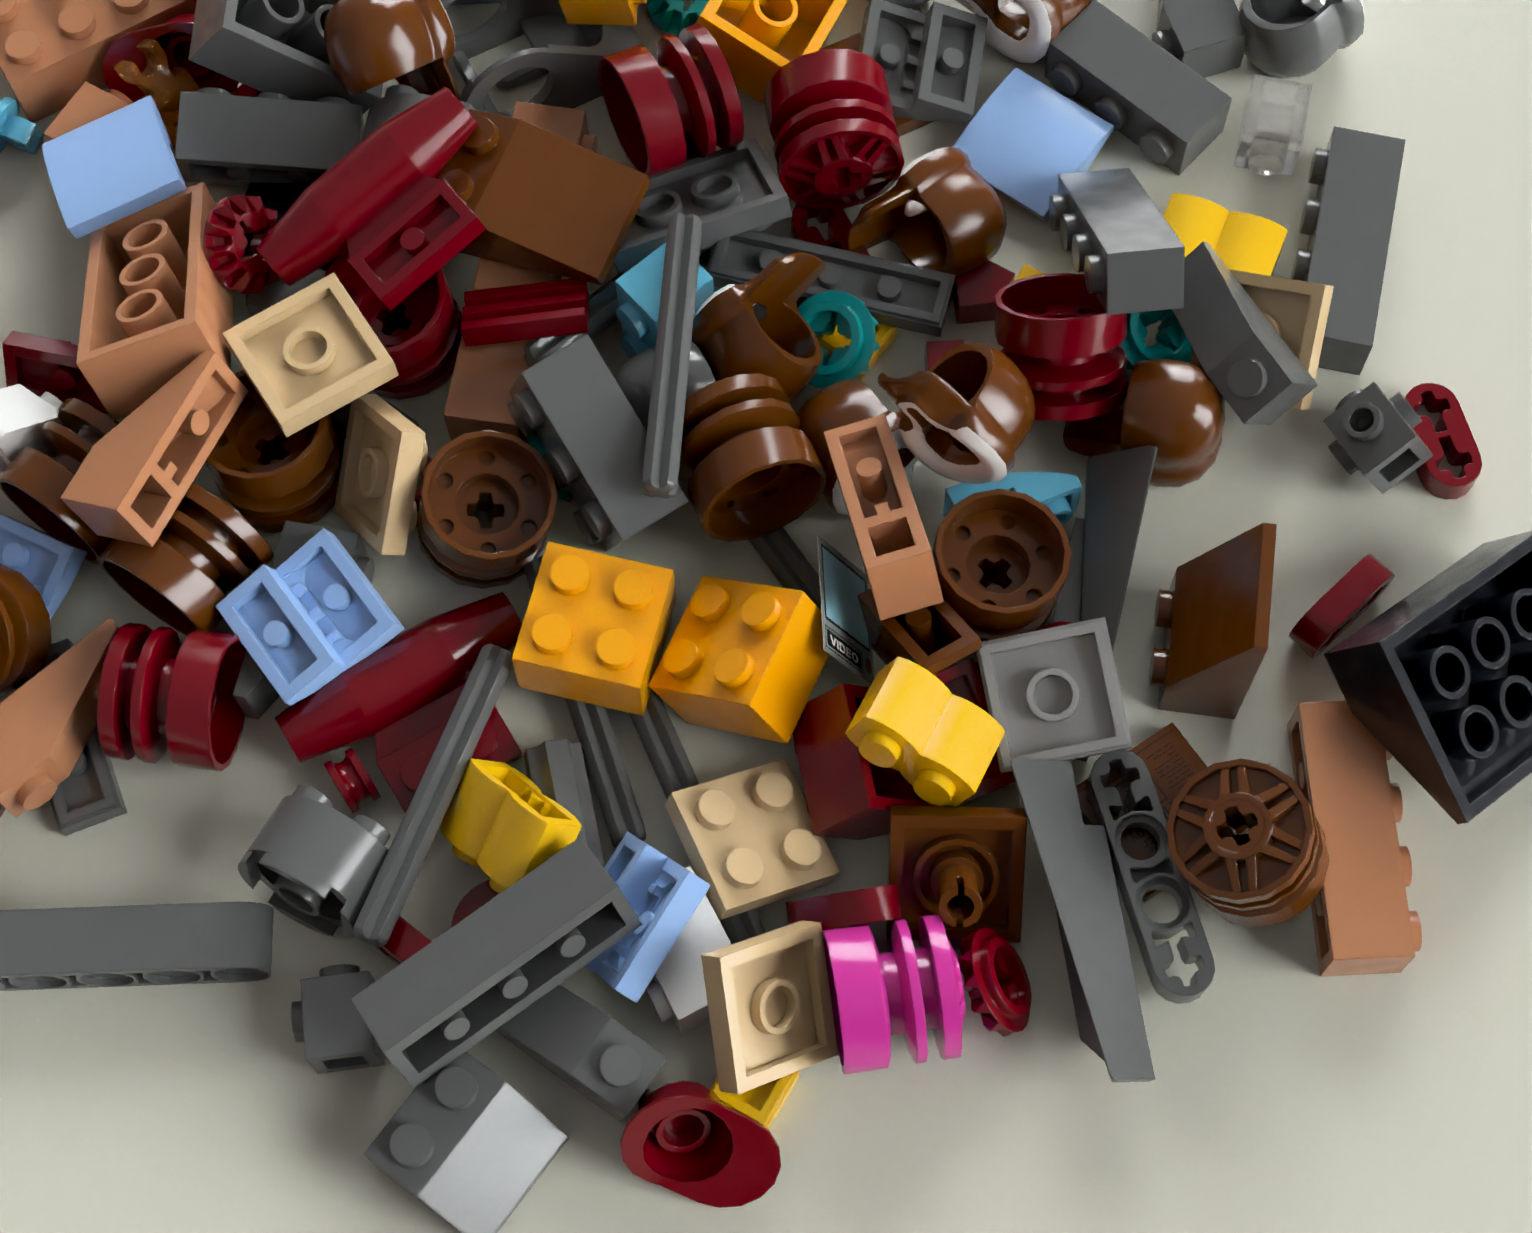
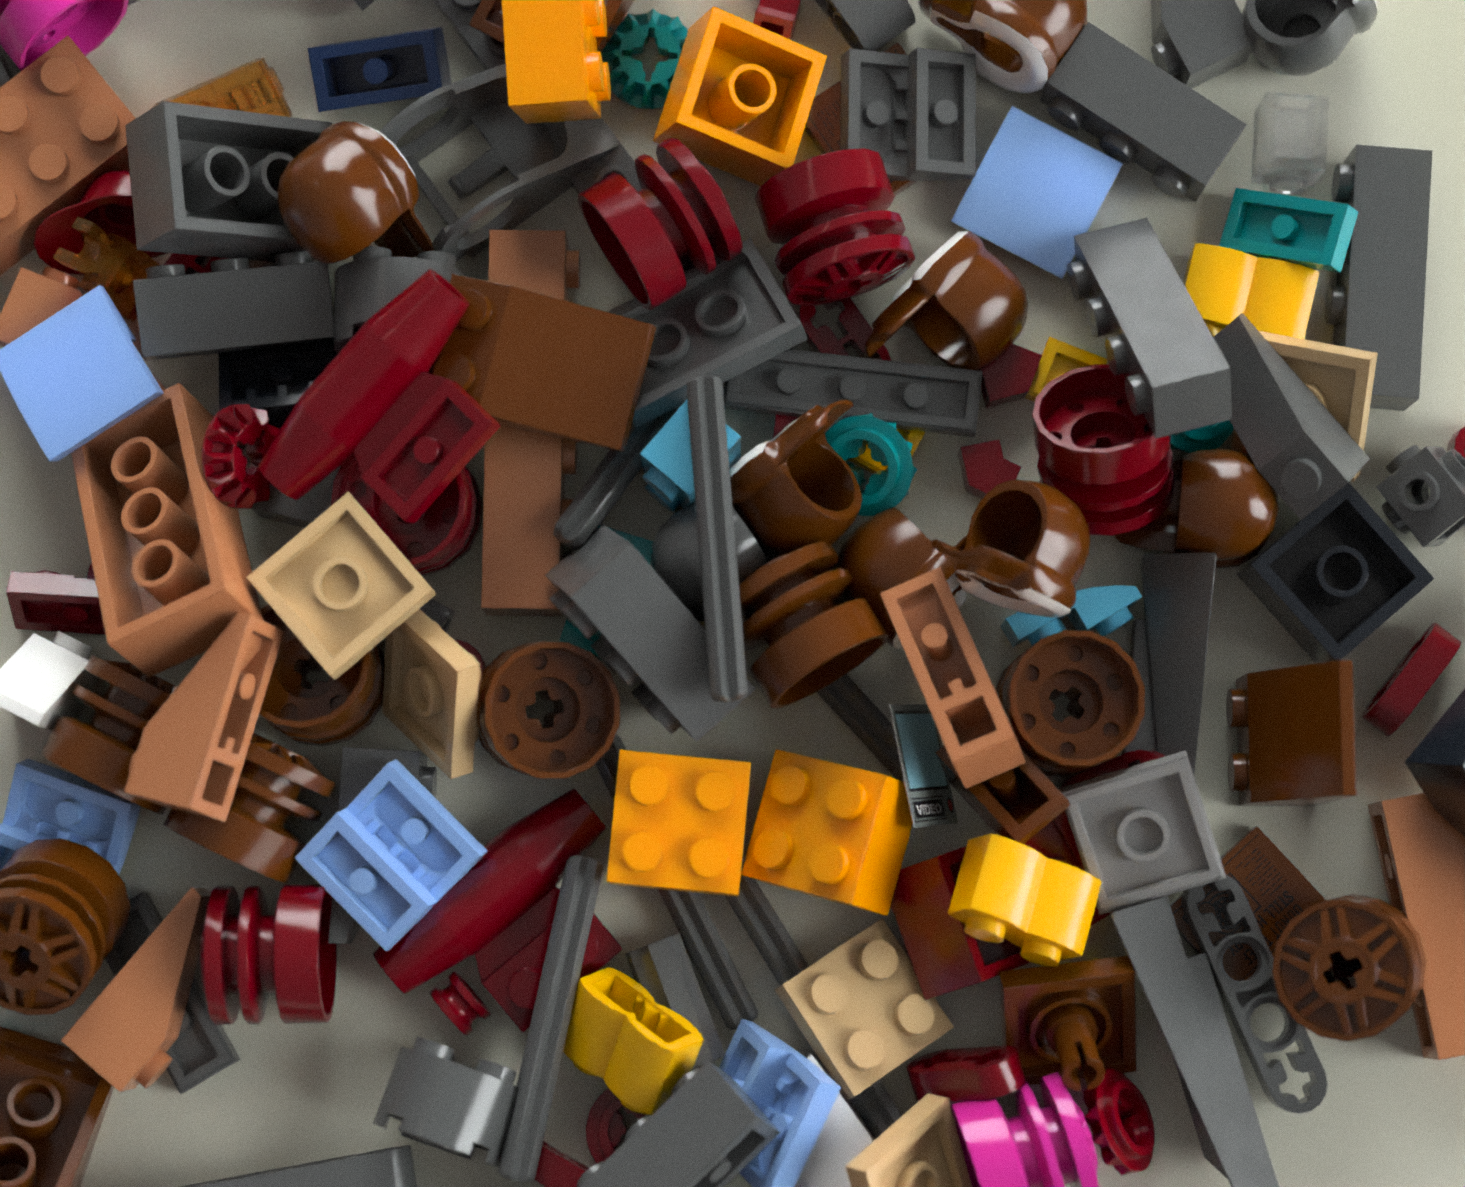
camera: 10 degrees left, 15 degrees up
(525, 312) = (548, 480): dark red tile -> none
(1268, 189) = (1289, 228): none -> teal plate
(1279, 476) = (1335, 576): none -> black brick

